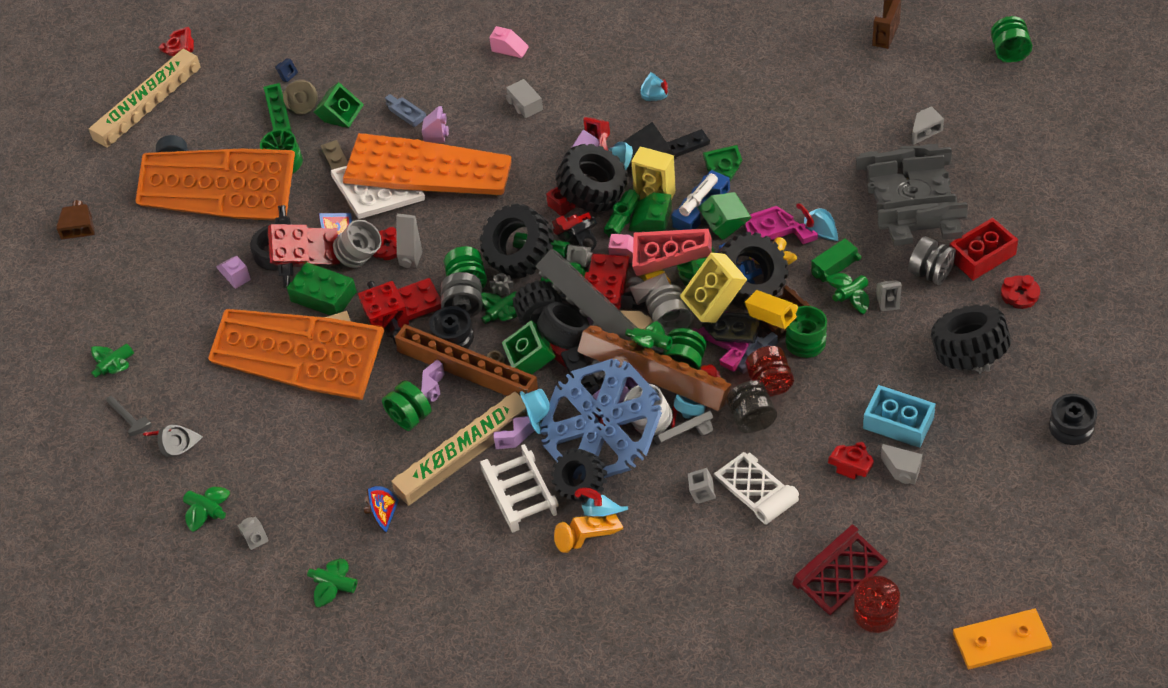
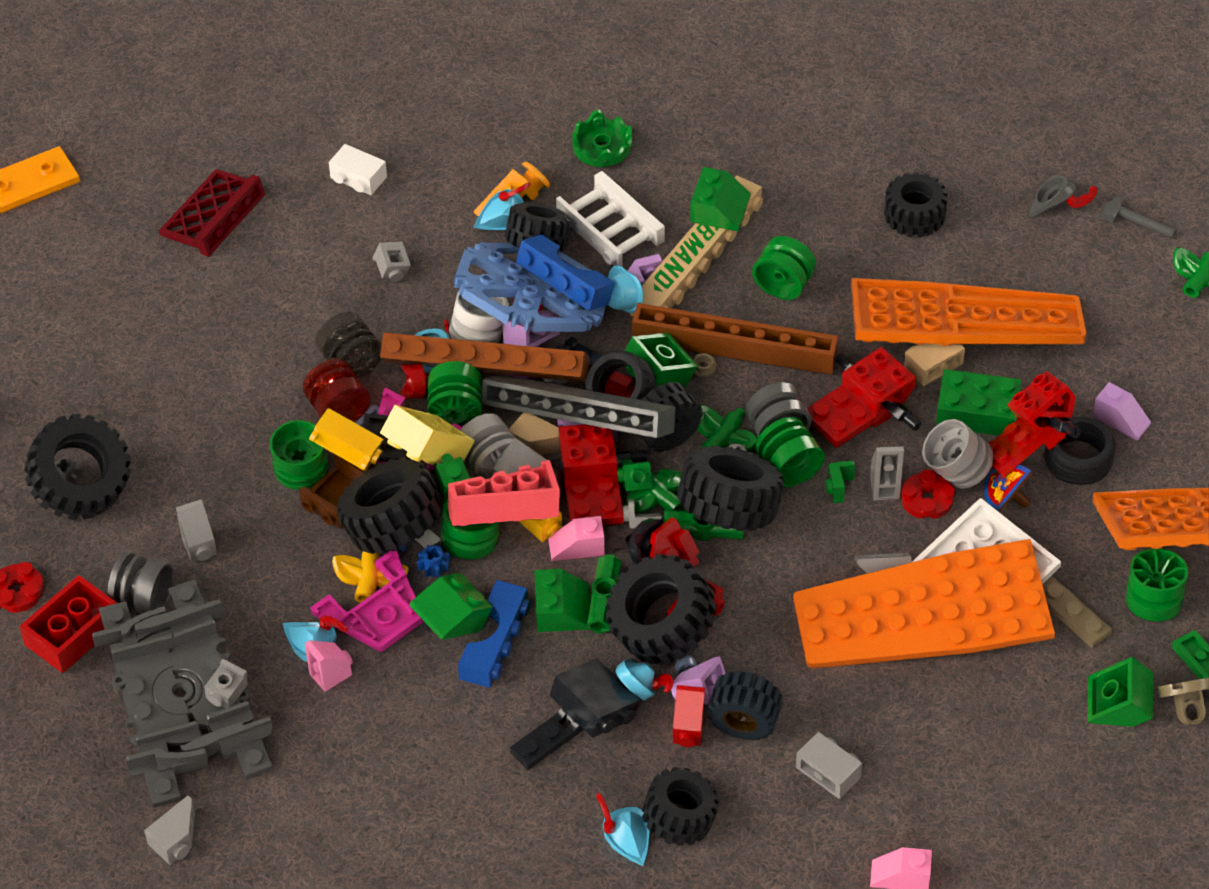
camera: 160 degrees right, 0 degrees up
(204, 506) = (972, 139): green plant -> none
(253, 532) = (903, 124): light grey bracket -> none
(284, 460) = (902, 209): none -> black tyre
(331, 580) = (782, 97): green plant -> none
(381, 505) = (764, 163): shield -> none
(405, 110) = (1013, 713): sand blue hinge -> none
(430, 377) = (770, 309): lavender slope -> none
(433, 463) = (719, 200): none -> green slope
(434, 126) = (944, 676): lavender slope -> none
(436, 206) = (879, 562): none -> light grey slope
(436, 263) = (838, 473): none -> green bracket
(453, 326) = (771, 367): black wheel -> none
(493, 552) = (600, 129): none -> green plate
(561, 122) = (745, 705): none -> black wheel
(585, 428) = (583, 286): none -> blue arch
(619, 85) = (676, 823): none -> black tyre
(652, 336) = (497, 371): green plant -> none
(653, 172) = (567, 625): light yellow brick -> none
(695, 198) = (497, 605): white pin -> none
(701, 423) = (432, 317): light grey hinge -> none
(709, 579) = (357, 169): none -> white brick
(723, 160) = (479, 711): green plate -> none
(772, 501) = (301, 262): white piece -> none
(813, 193) = (327, 663): none -> bright pink slope
(834, 260) = (280, 578): green brick -> none
(850, 289) = (253, 534): green plant -> none
(851, 460) = (215, 325): red plate -> none
(876, 604) = (164, 170): clear red wheel -> none
(885, 173) = (226, 684): none -> light grey brick
(899, 416) = (163, 375): medium azure brick -> none
(902, 463) = (153, 329): light grey slope -> none

